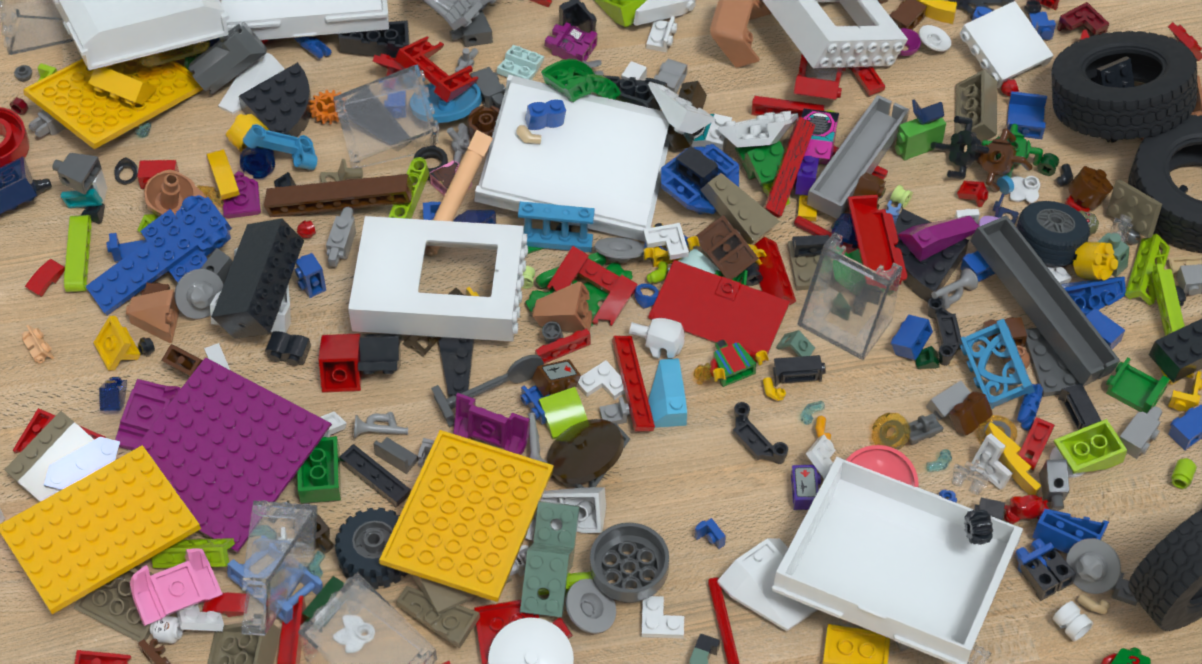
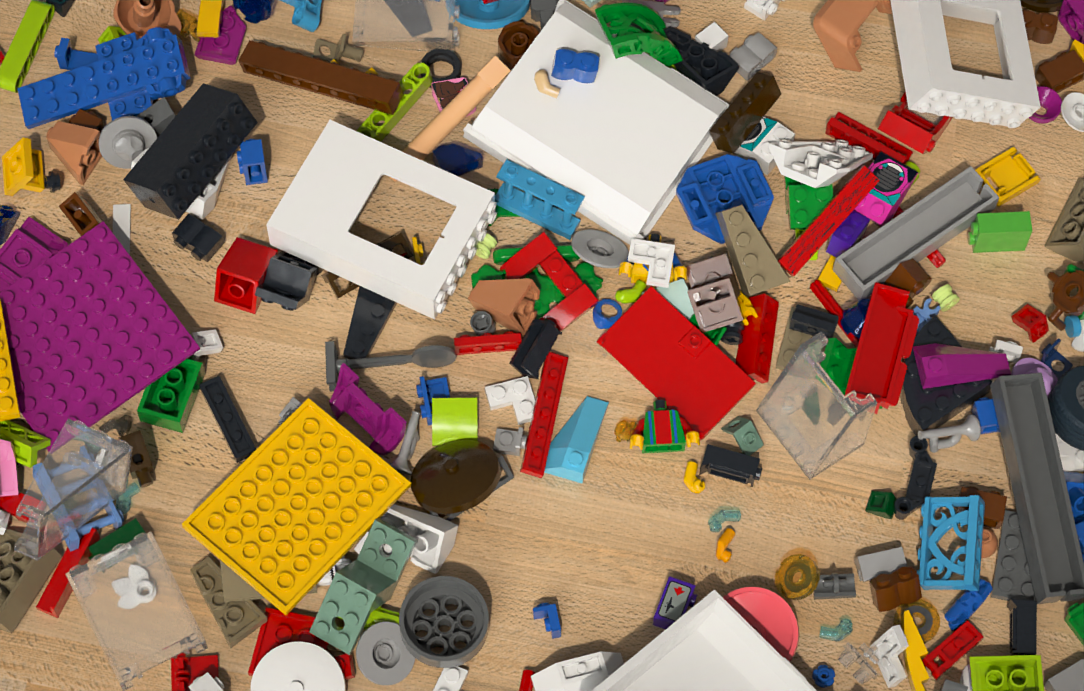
camera: 20 degrees right, 10 degrees up
(284, 180) = (275, 38): black slope -> none
(306, 229) = (273, 103): red plate -> none
(341, 237) = (306, 126): light grey hinge -> none
(362, 544) = (179, 494): black wheel -> none
(369, 426) = (236, 358): light grey piece -> none
(395, 455) = (259, 403): dark grey panel -> none
(430, 210) = (412, 129): blue bracket -> none
(460, 141) = (482, 54): light grey piece -> none
(556, 377) = (463, 378): reddish brown brick -> none
(603, 335) = (535, 347): none -> black window
(661, 334) = (597, 371): white piece -> none
(679, 111) = (731, 108): white wedge -> none
(696, 167) = (724, 183): black brick -> none
(754, 440) = (644, 527): black plate -> none
(820, 455) = (706, 574): white plate -> none
(869, 79) = (979, 139): red plate -> none
(904, 95) = (1008, 175): none -> yellow container
(911, 337) = (873, 474): blue brick -> none
(928, 113) = (1014, 212): dark blue bracket -> none
(957, 145) = (1034, 270): black plate -> none

